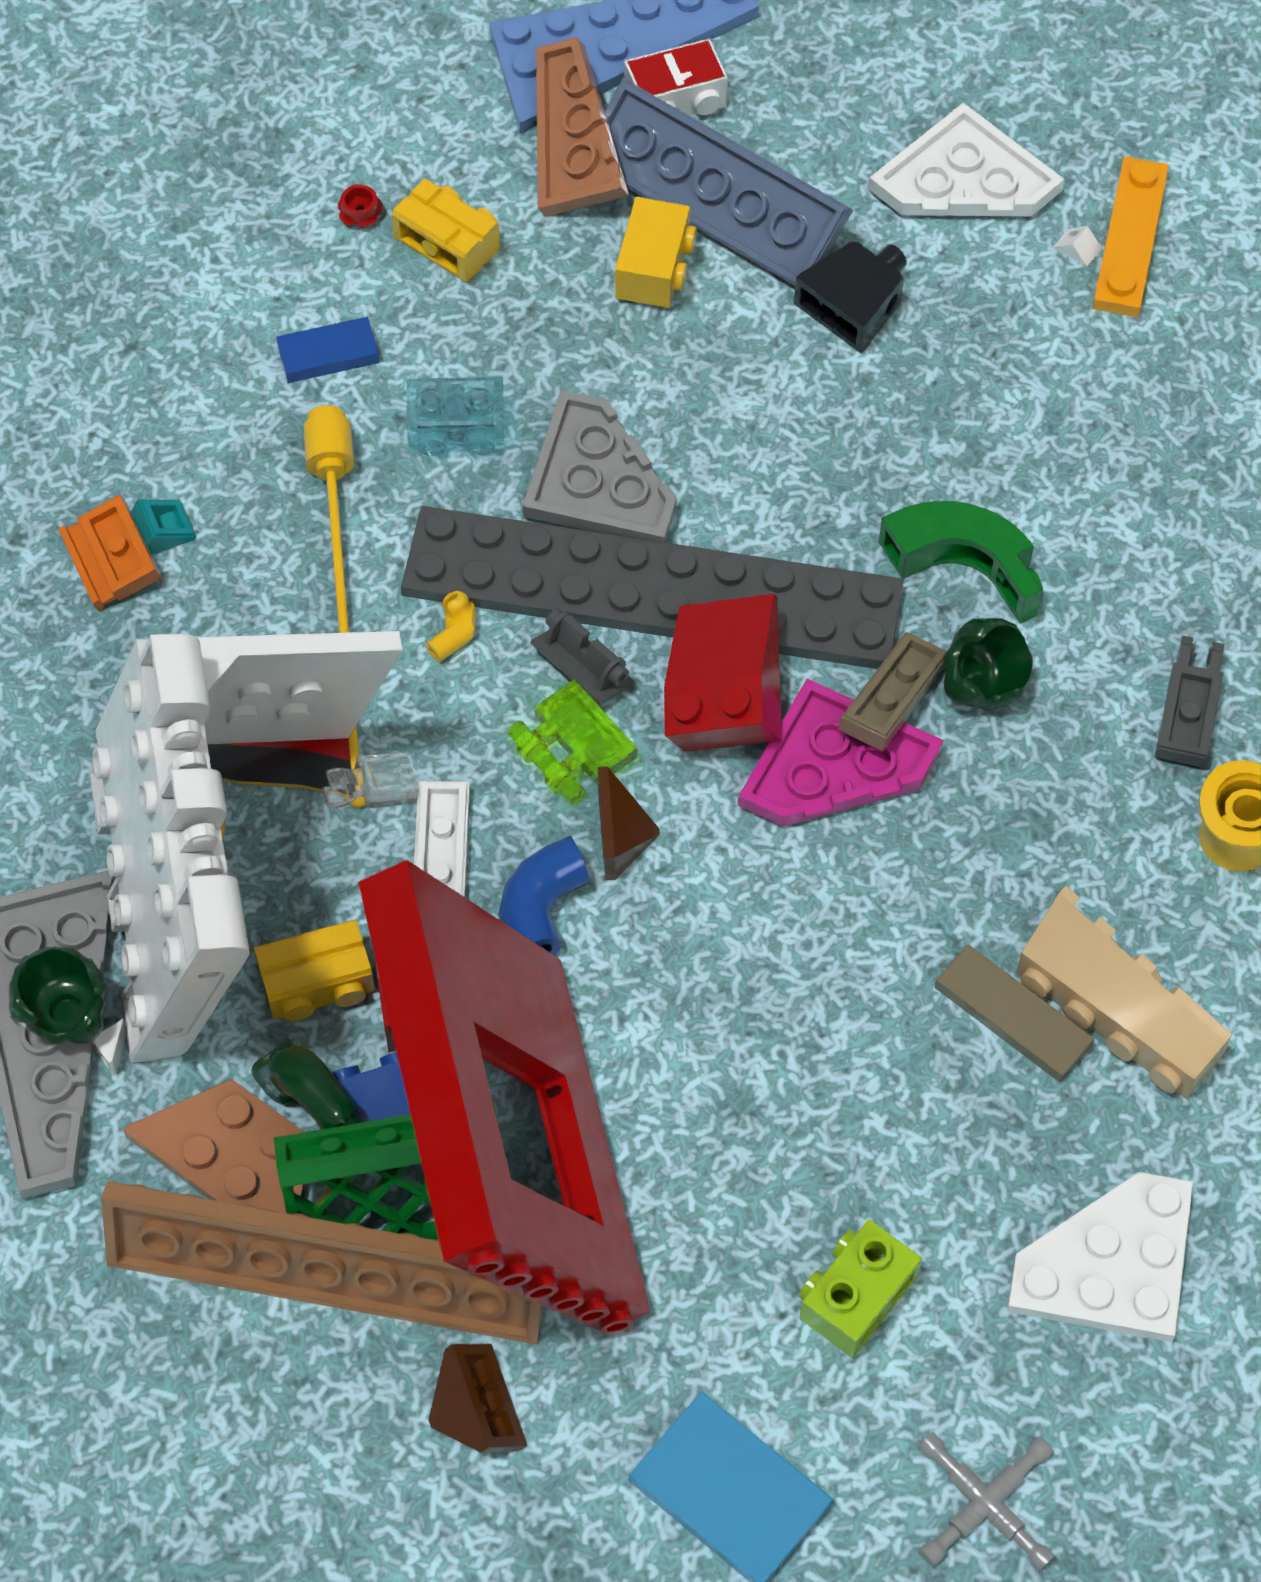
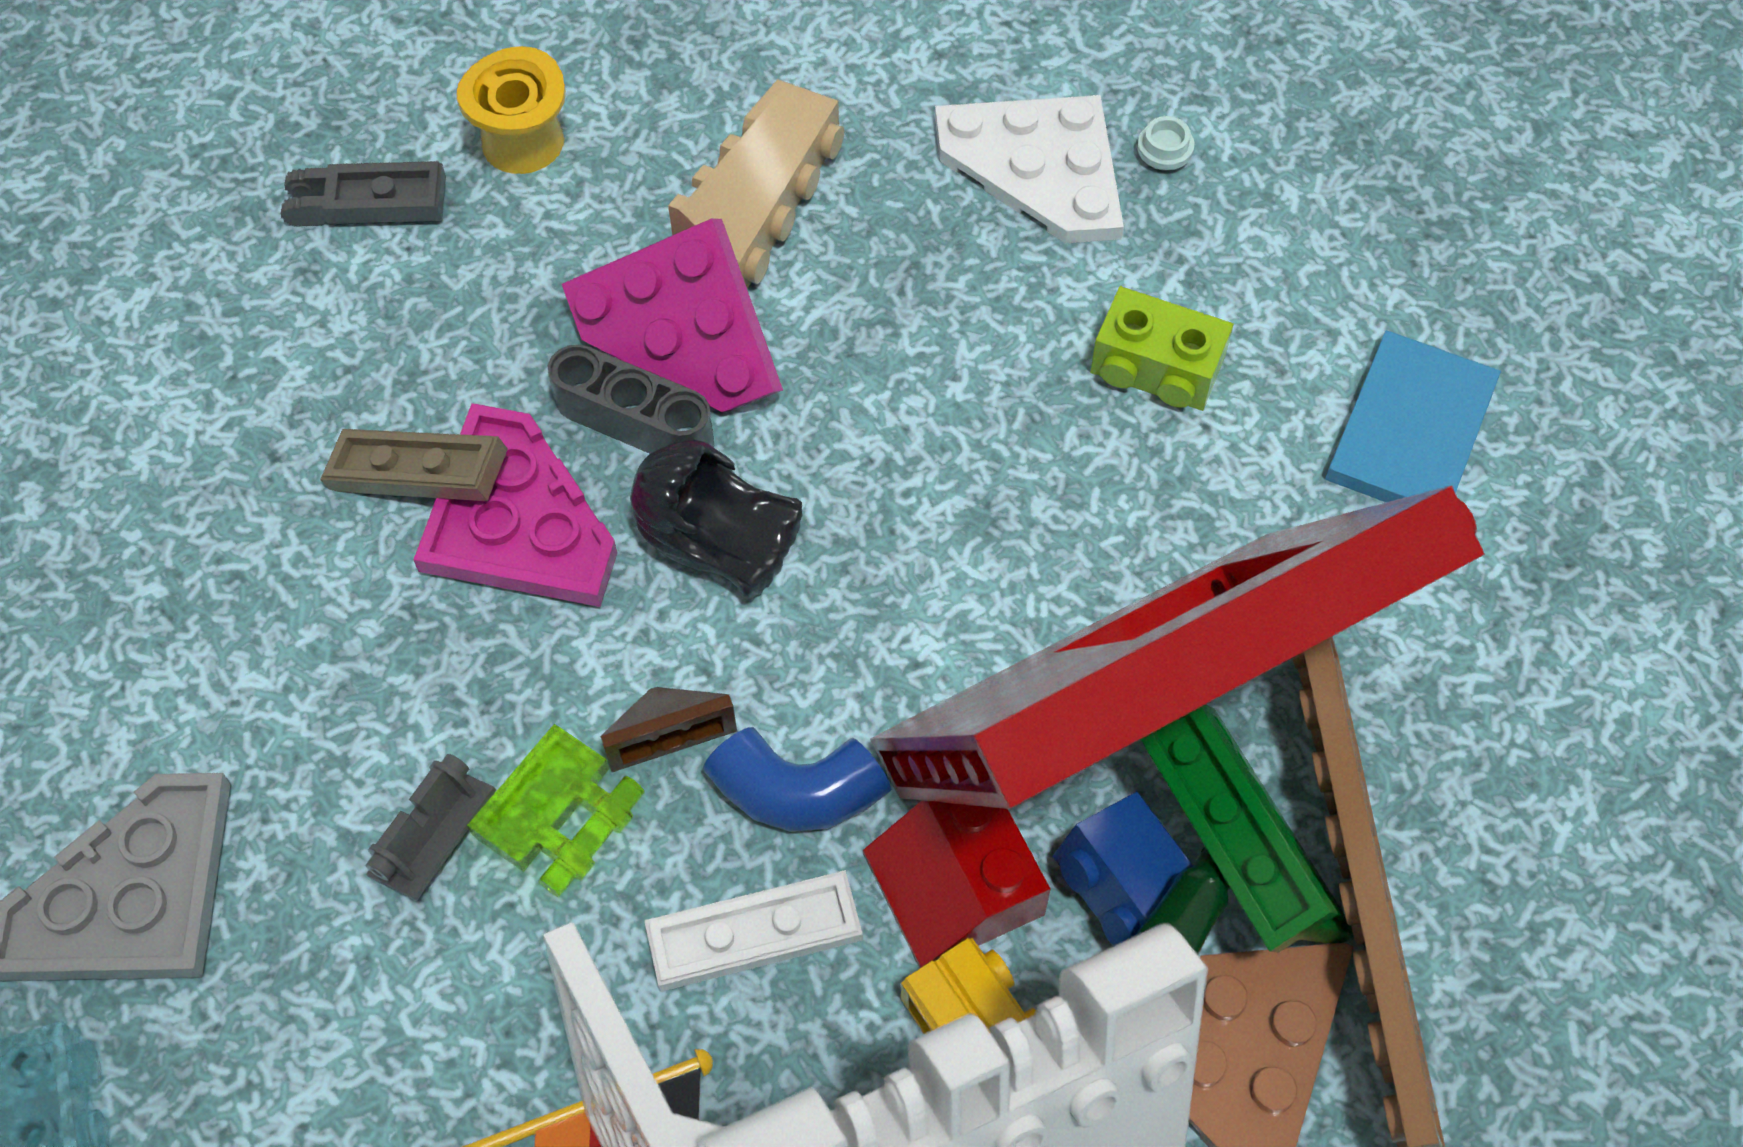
camera: 105 degrees left, 0 degrees up
(378, 778) = (672, 1032): clear plate -> none
(459, 626) = (403, 1008): yellow arm -> none
(474, 1401) = (1441, 682): reddish brown slope -> none
(643, 582) = (294, 811): dark grey plate -> none
(724, 675) = (429, 635): red slope -> none
(781, 887) = (711, 518): none -> black piece
(916, 835) = (617, 384): none -> dark grey beam
(965, 536) = (177, 426): green arch -> none
(984, 903) = (680, 316): none -> dark pink plate
(986, 1502) = (1323, 216): light grey piece -> none
(987, 664) = (363, 374): dark green hair -> none
(1014, 1013) = (799, 279): dark tan tile -> none
(1102, 1381) = (1166, 143): none -> light aqua plate

